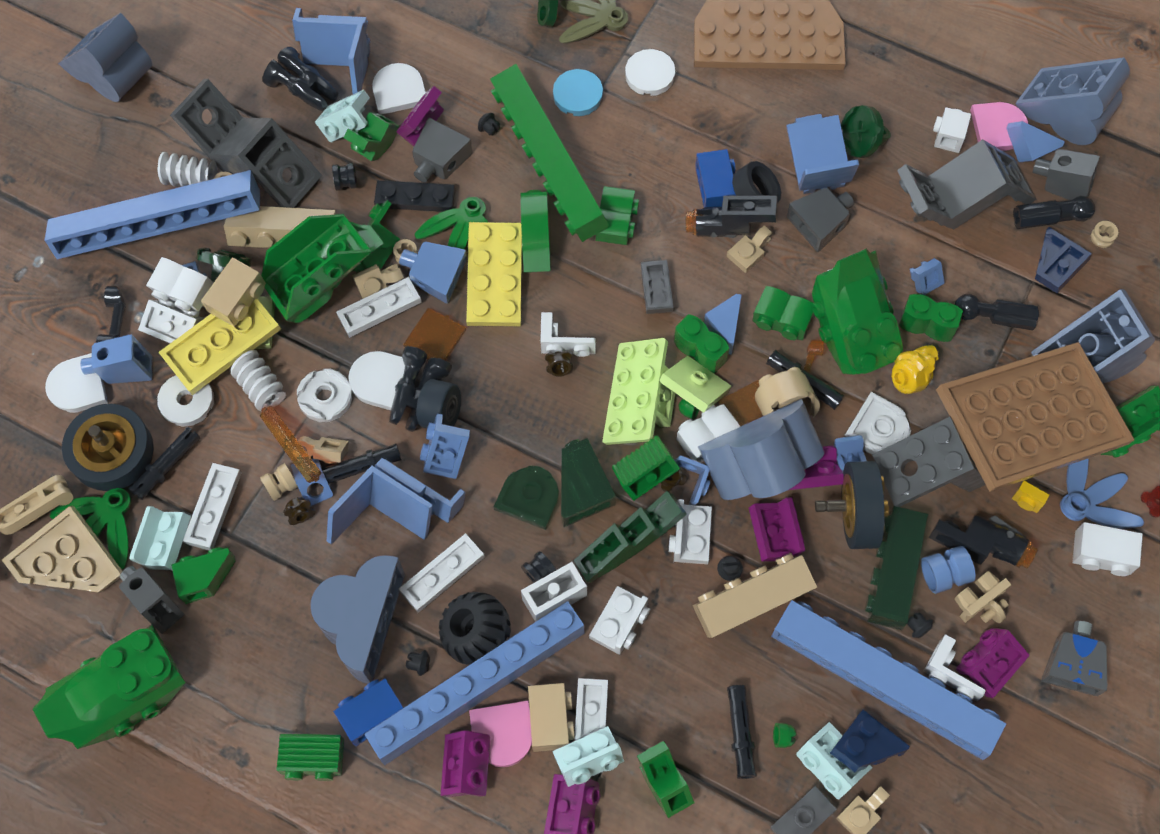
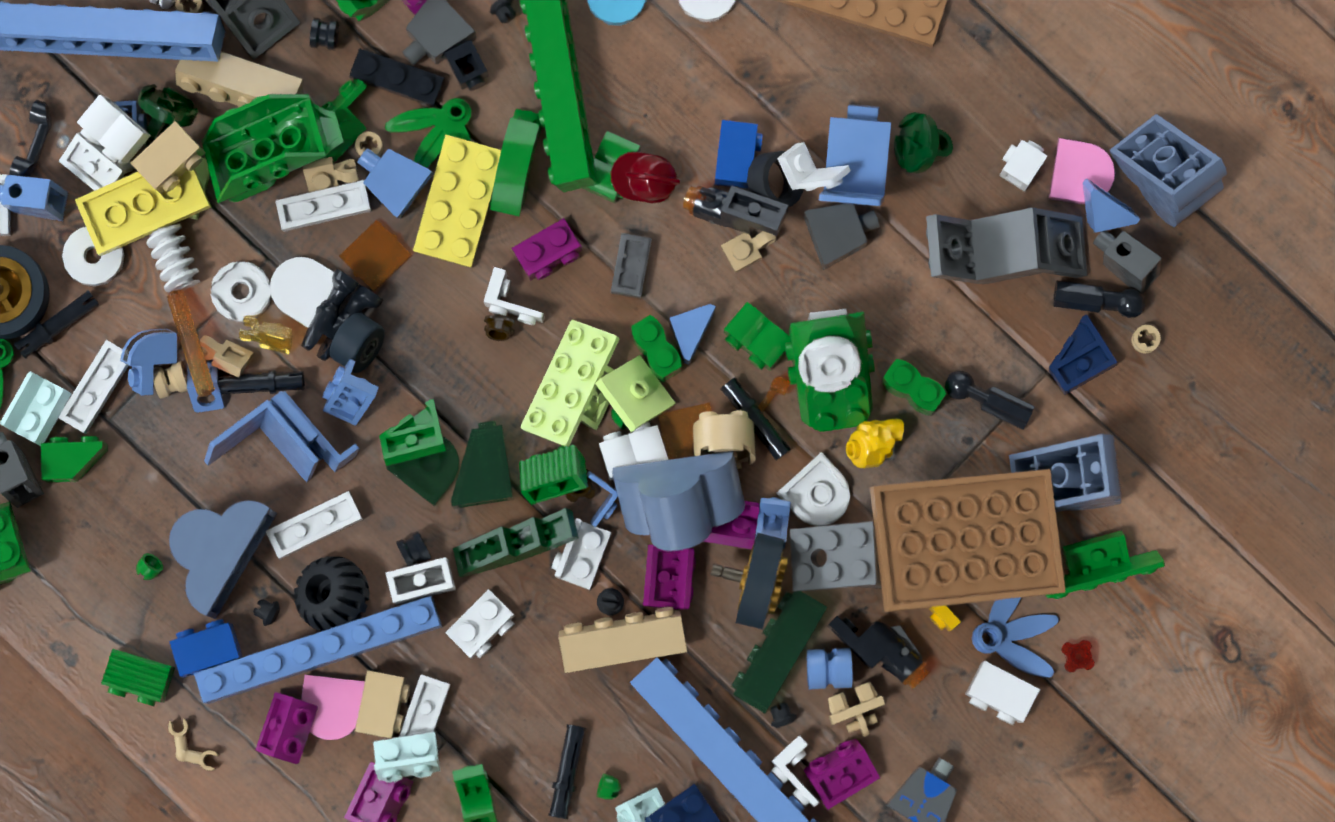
camera: 15 degrees right, 15 degrees up
(249, 462) = (143, 352): none -> medium blue brick
(297, 651) = (149, 566): none -> green hinge
(298, 510) = (183, 417): dark brown plate -> none
(359, 421) = (270, 336): none -> clear yellow plate
(374, 819) = (183, 753): none -> tan arm
(471, 169) = (464, 56): none -> black brick
(511, 471) = (413, 437): none -> green wing
(582, 293) = (547, 249): none -> magenta bracket
(647, 213) = (643, 177): none -> dark red piece
(774, 172) = (802, 171): none -> white bracket
(861, 300) = (829, 364): none -> white tile
(927, 276) = (929, 337): medium blue tile -> none

